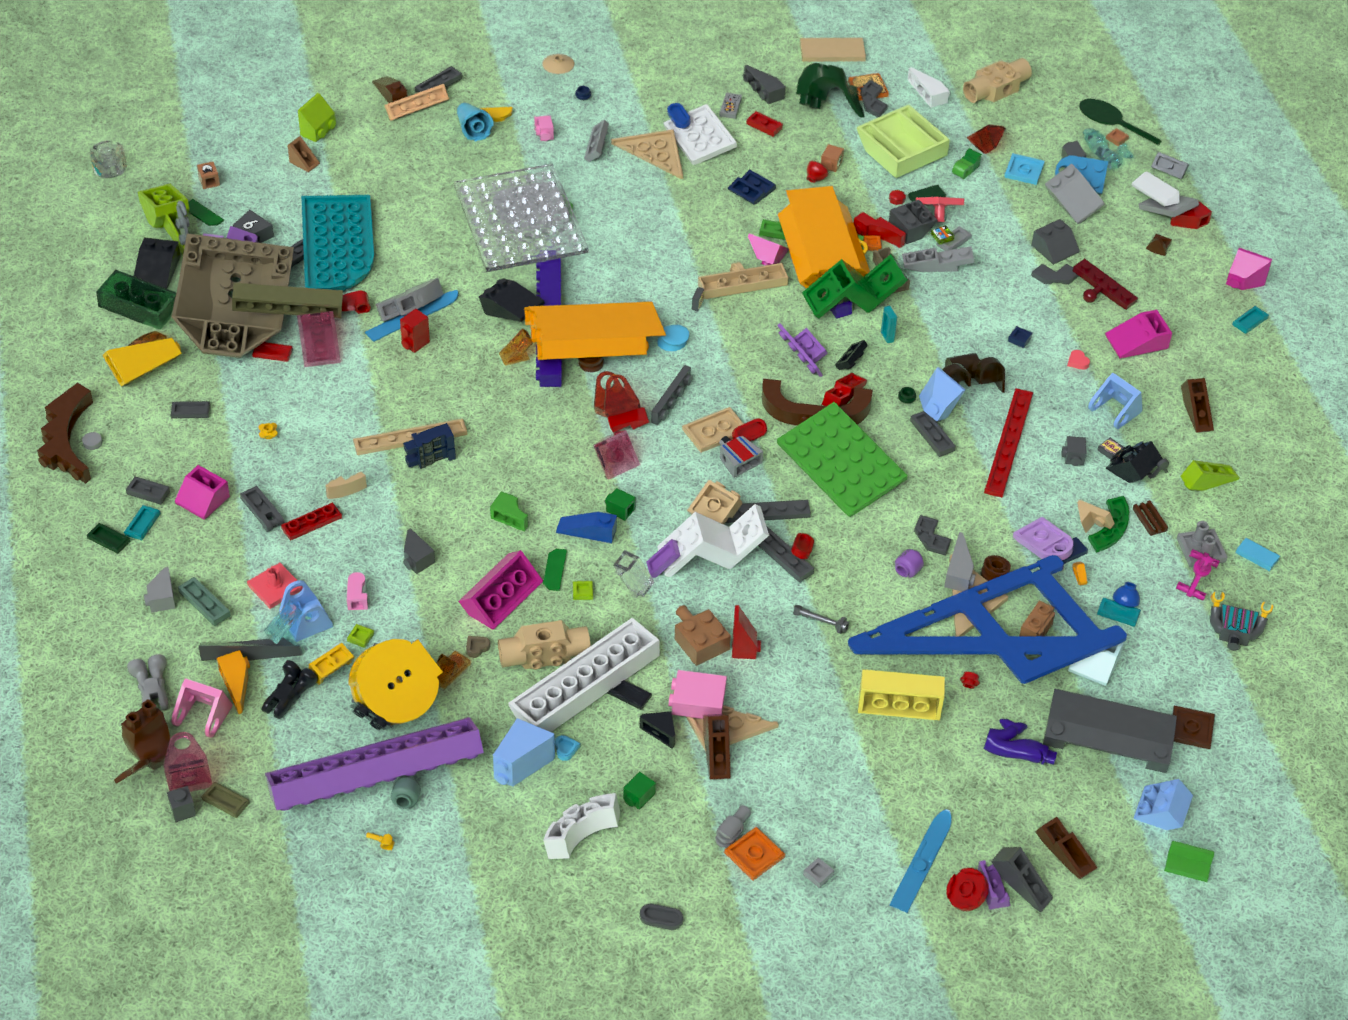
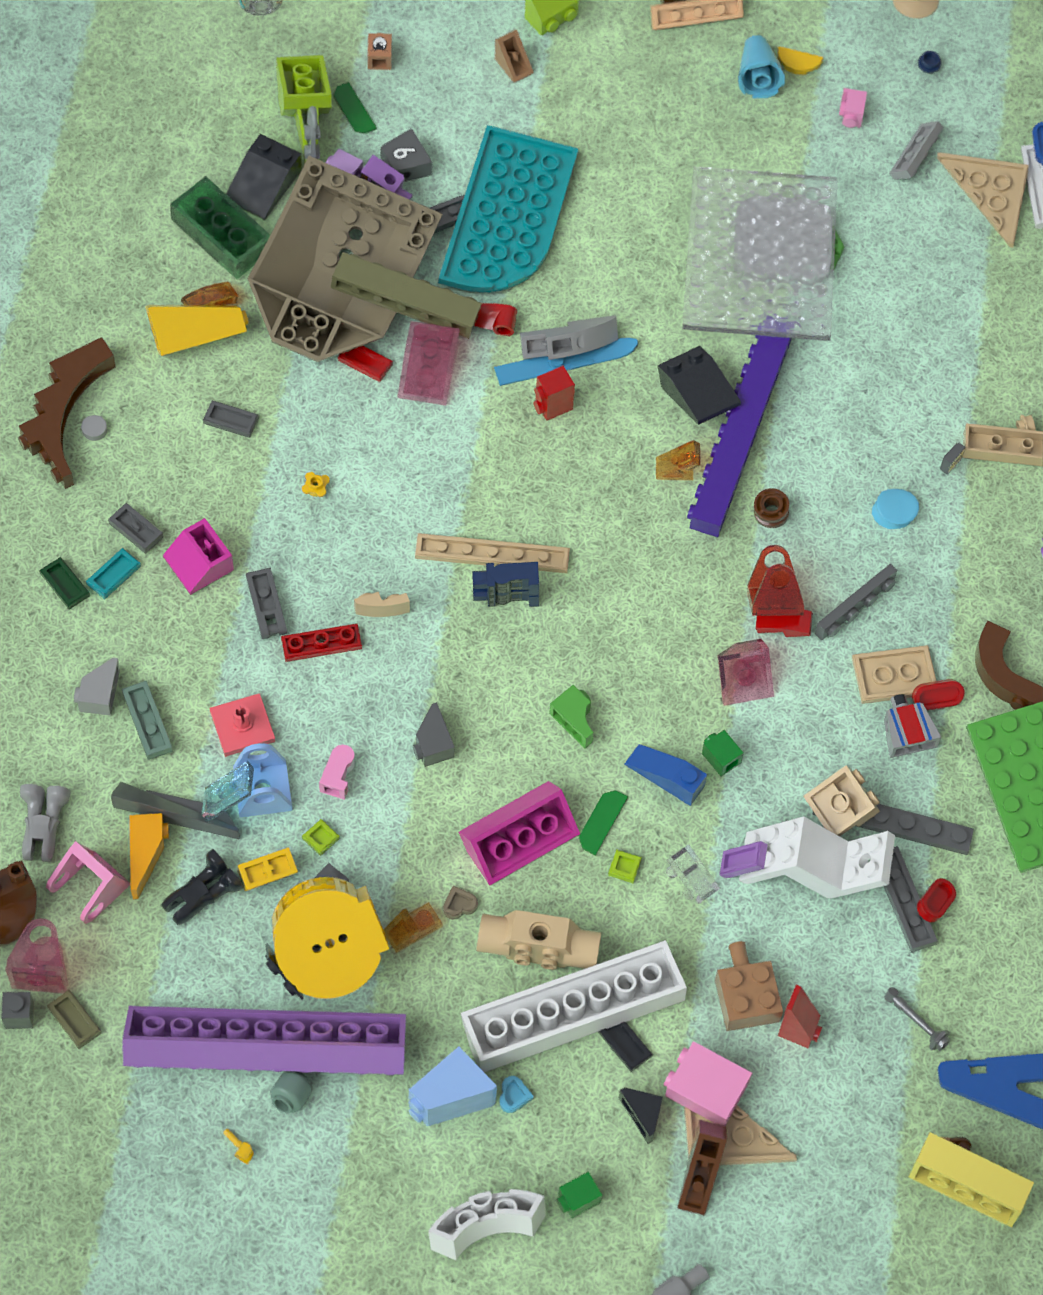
camera: 20 degrees right, 15 degrees up
(592, 329) = (788, 469): light orange panel -> none

